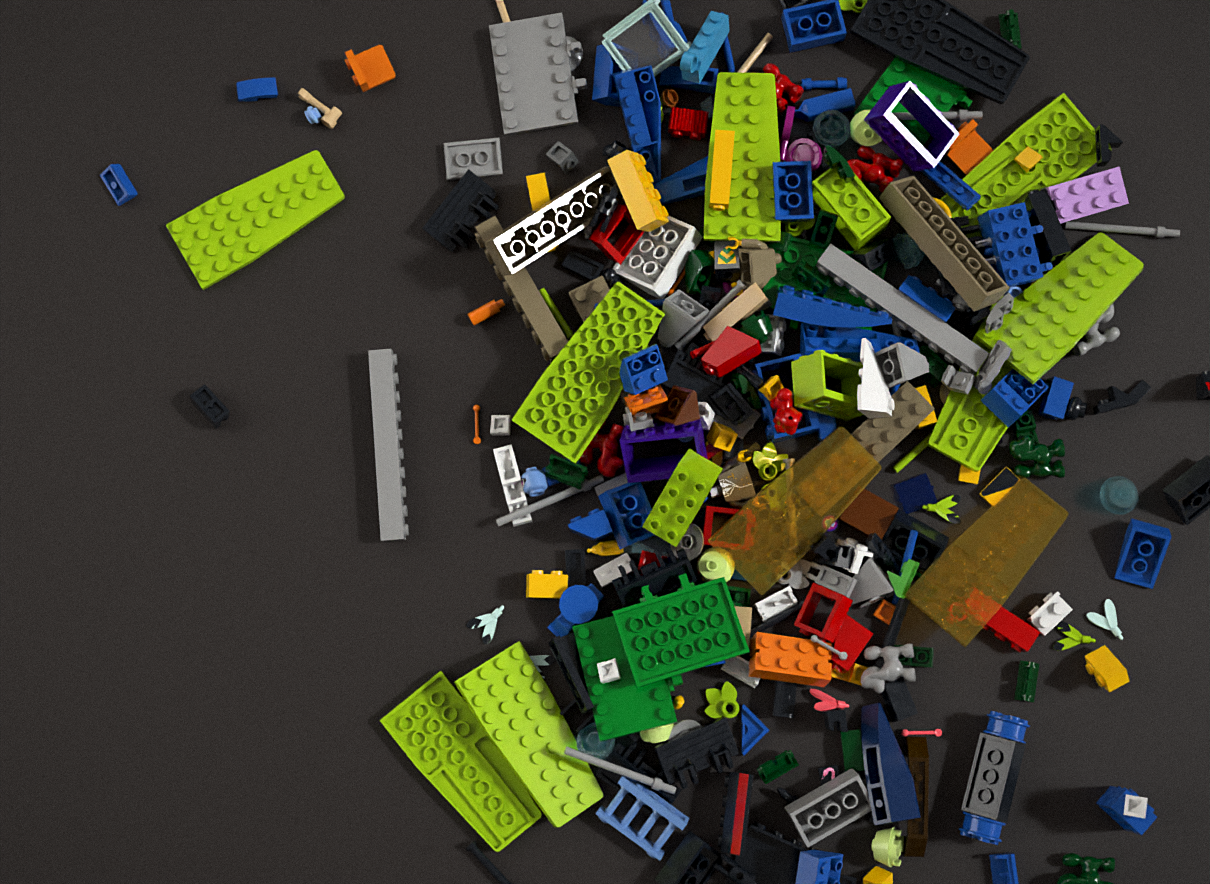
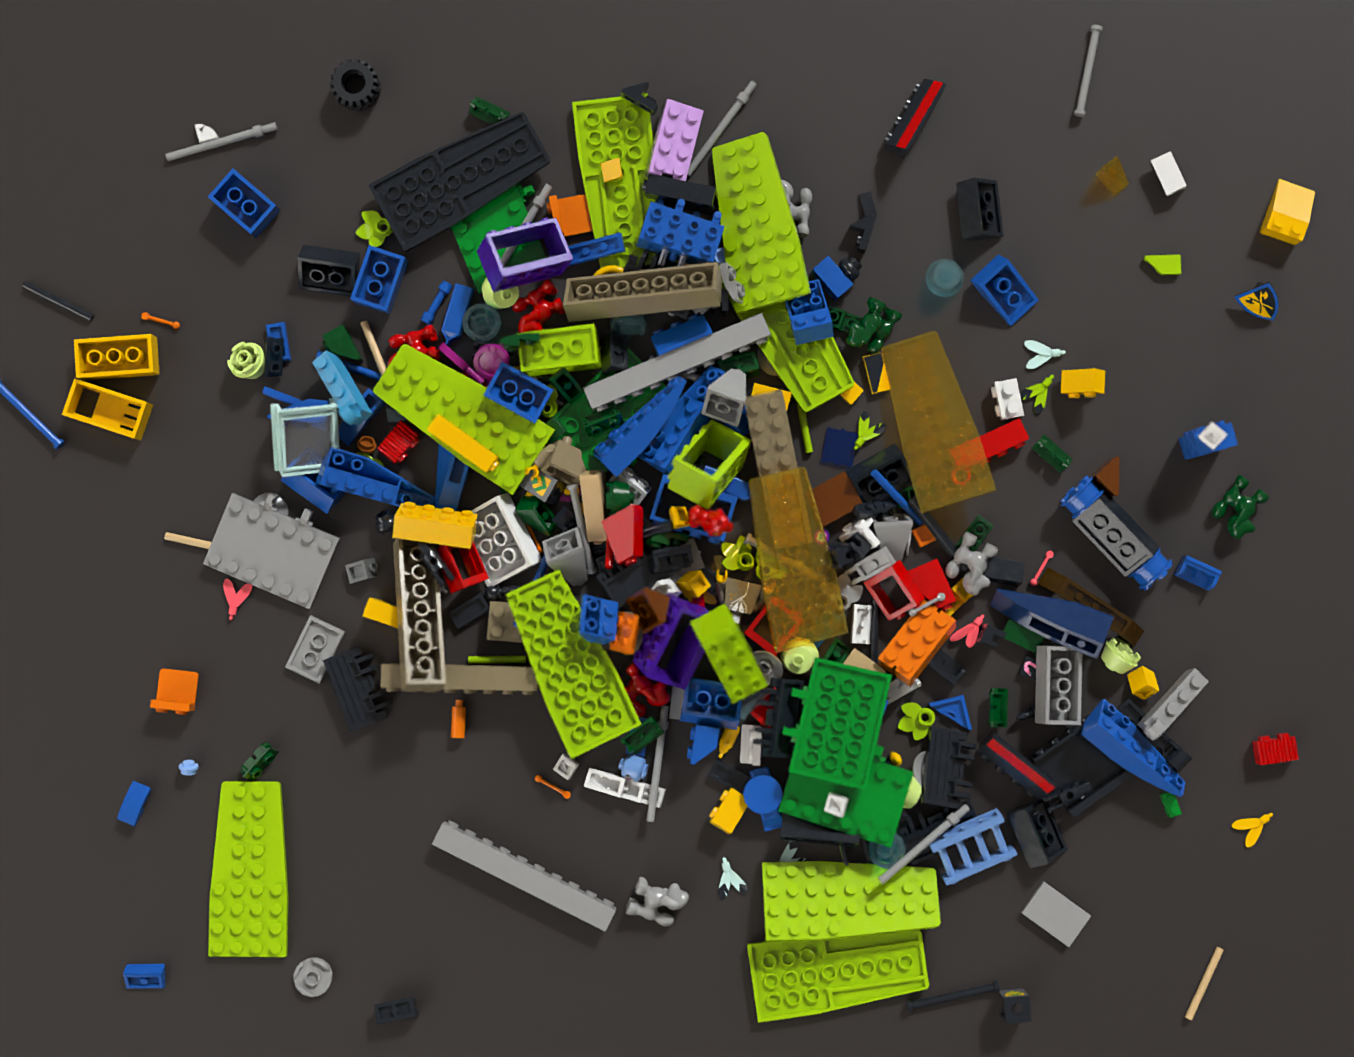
camera: 65 degrees left, 5 degrees up
(198, 321) = (313, 977): none -> light grey tile
(330, 115) = (198, 752): tan brick -> none
(343, 168) = (253, 768): none -> dark green hinge
(435, 567) = (655, 897): none -> light grey animal
(475, 69) = (234, 599): none -> coral piece
(639, 421) = (639, 649): light grey bracket -> none
(740, 27) = (341, 344): none -> dark green slope
(873, 394) = (740, 435): white wedge -> none
(902, 583) = (909, 509): bright green slope -> none
(957, 380) = (767, 353): light grey bracket -> none
(991, 367) = (774, 318): light grey hinge -> none
(1038, 740) = (1108, 476): none -> reddish brown slope

